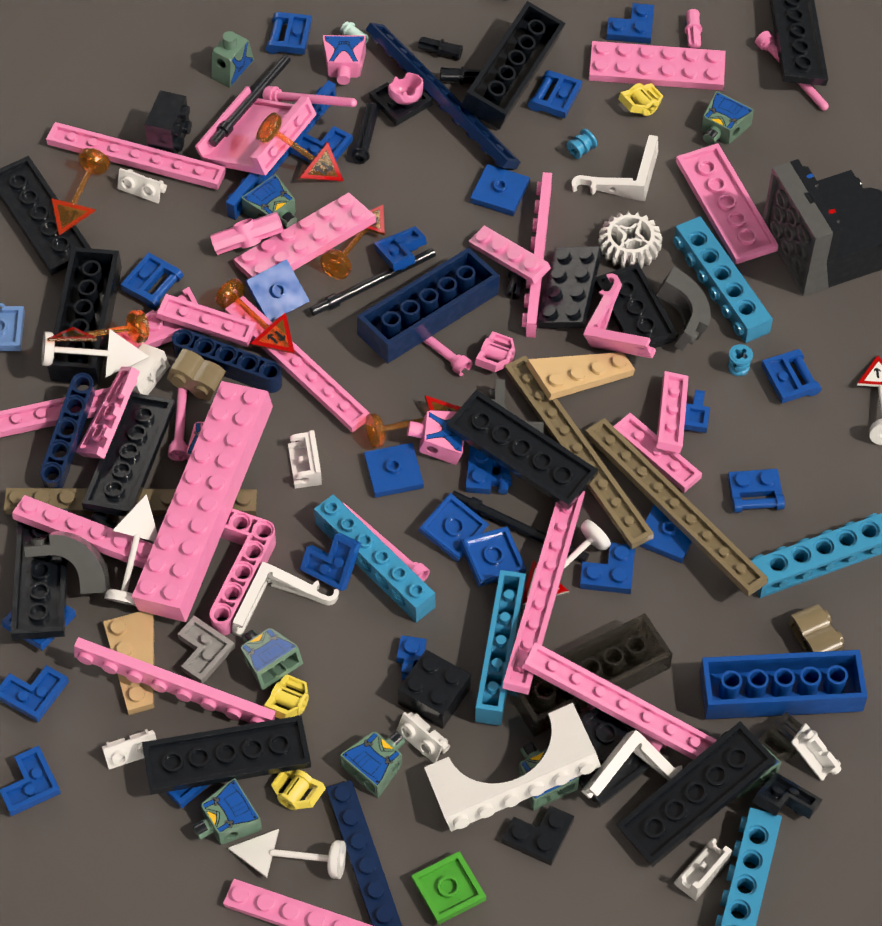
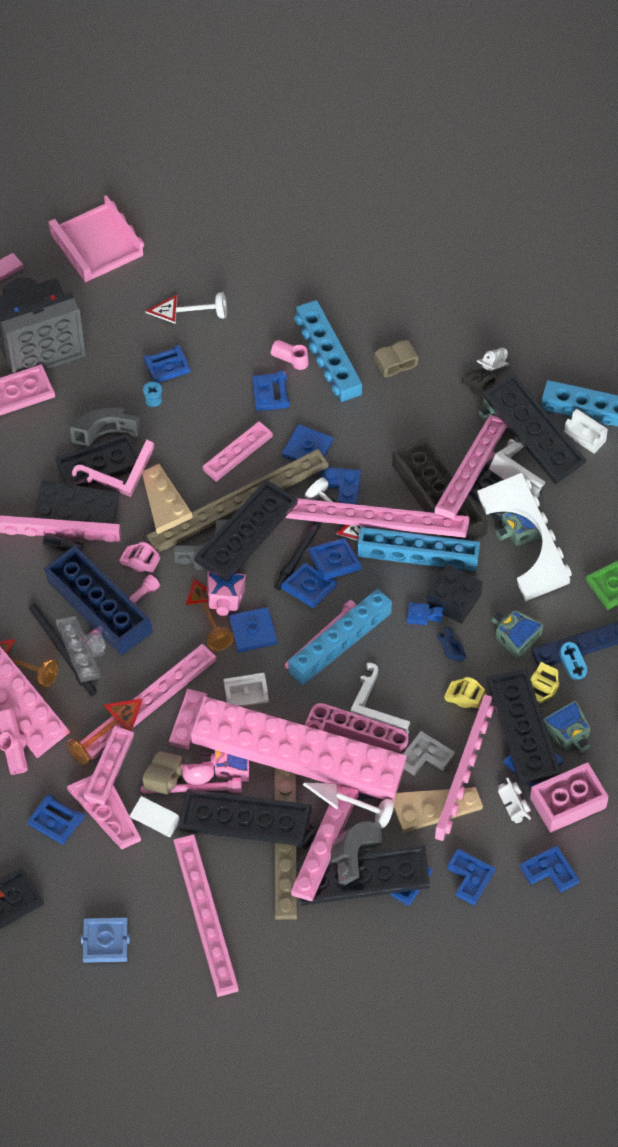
camera: 90 degrees left, 0 degrees up
(72, 421) = (213, 866): dark blue beam -> none
(87, 305) = (98, 864): black brick -> none
(105, 422) = (213, 833): bright pink wing -> none
(118, 354) = (149, 874): white piece -> none
(122, 804) = (569, 797): none -> bright pink brick
(136, 327) = (118, 816): clear orange piece -> none
(190, 404) = (197, 773): none -> bright pink hair
(238, 363) = (149, 744): dark blue beam -> none
(261, 849) = (594, 708): white piece -> none
(269, 656) = (432, 705): torso -> none
(277, 290) = (75, 716): plate -> none
(288, 408) = (186, 719): none -> bright pink plate
(325, 823) = (577, 659): none -> dark azure beam
(332, 567) = (351, 660): blue plate -> none
(355, 684) = (452, 647): none -> dark blue plate
(362, 292) = (81, 648): none -> clear plate
(397, 248) = (32, 631): blue plate -> none
(416, 732) = (496, 601): white hinge -> none
(481, 476) = (258, 569): blue plate -> none
(509, 254) = (45, 545): bright pink plate -> none
(542, 841) = (569, 527): black plate -> none
(629, 234) = (29, 457): white gear -> none
(672, 412) = (203, 437): bright pink plate -> none
(677, 507) = (290, 437): dark tan plate -> none
(696, 414) = (202, 424): blue plate -> none
(722, 279) = (85, 398): dark azure brick -> none
(780, 792) = (530, 378): black plate -> none
(782, 684) = (441, 377): blue brick -> none
(815, 511) = (293, 354): none -> bright pink piece

